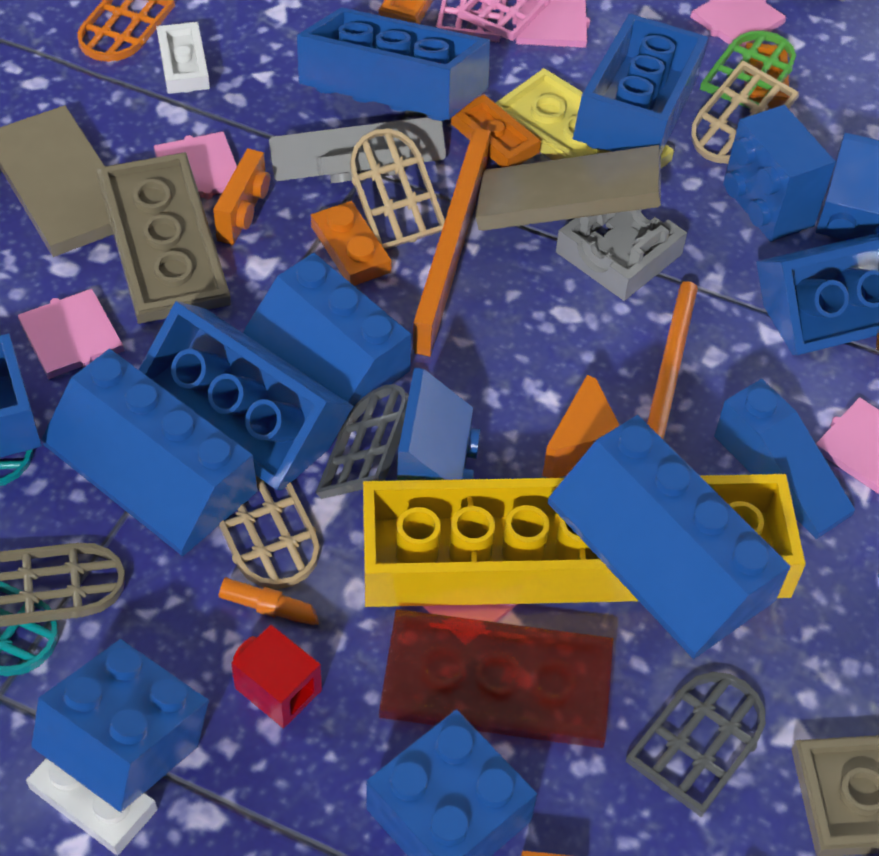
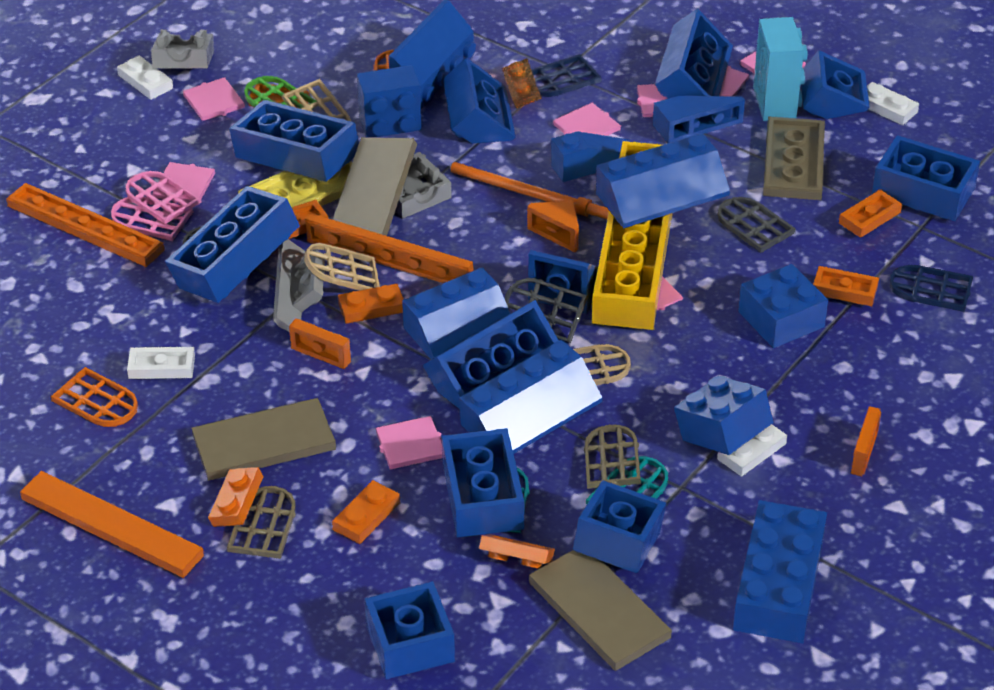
camera: 75 degrees left, 10 degrees down
(162, 236) = (344, 384): dark tan tile -> none
(209, 161) = (272, 370): bright pink piece -> none
(268, 601) = (641, 368): orange piece -> none
(276, 675) = (697, 362): red brick -> none
(498, 677) = (707, 286): clear red tile -> none

